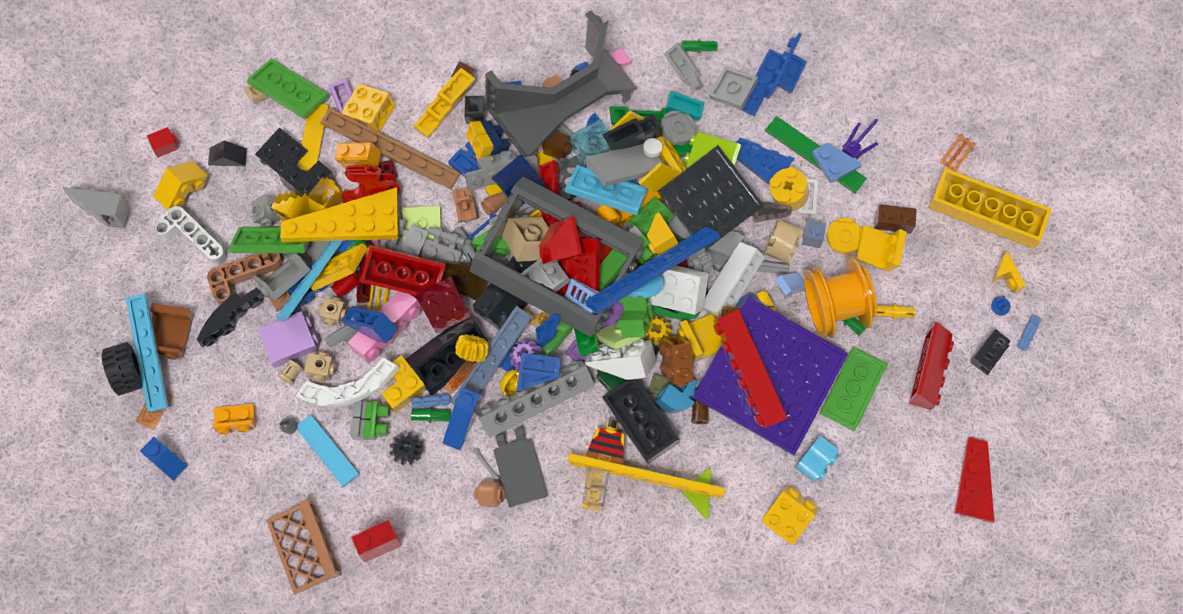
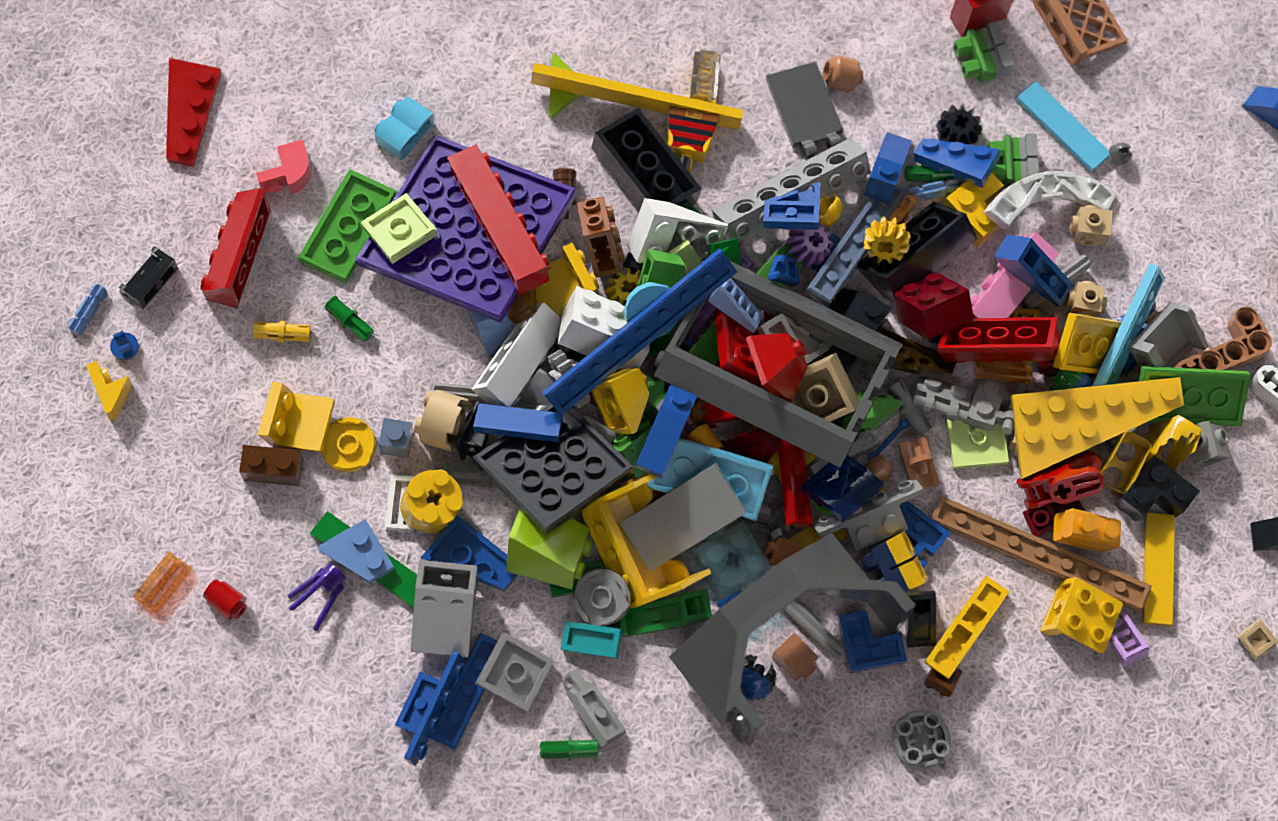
camera: 175 degrees right, 0 degrees up
(221, 319) = (1233, 290): black slope -> none
(234, 418) = (1193, 161): light orange bracket -> none
(280, 151) = (1201, 537): black hinge -> none
(287, 88) = (1211, 642): bright green tile -> none
(288, 339) = (1129, 259): lavender brick -> none
(290, 372) = (1129, 216): tan bush -> none
(376, 506) = (987, 53): none -> bright green hips
(411, 415) = (961, 159): none -> blue wing
(480, 44) = (921, 739): none -> light grey tile
(495, 477) = (836, 100): light grey hinge -> none
(621, 57) = (697, 723): bright pink tile -> none
(633, 133) = (674, 564): black slope -> none
(637, 204) = (666, 431): none -> blue slope
(652, 148) = (642, 549): white tile -> none
(658, 383) = (624, 221): olive tile -> none
(674, 400) = (597, 186): dark azure brick -> none
(735, 227) = (518, 422): none -> tile
(764, 227) = (467, 440): none -> black hinge
(776, 301) = (458, 331): clear hips -> none
(779, 124) = (444, 608): none -> light grey slope
(790, 514) = (439, 61): yellow bracket -> none
(791, 283) = (432, 358): light blue tile -> none
(818, 370) = (399, 228): none -> yellowish green plate
(839, 297) = (366, 321): light orange wheel -> none
(895, 428) = (294, 170): none -> coral brick
(917, 138) = (225, 599): none -> red brick
(990, 208) = (125, 483): yellow brick -> none

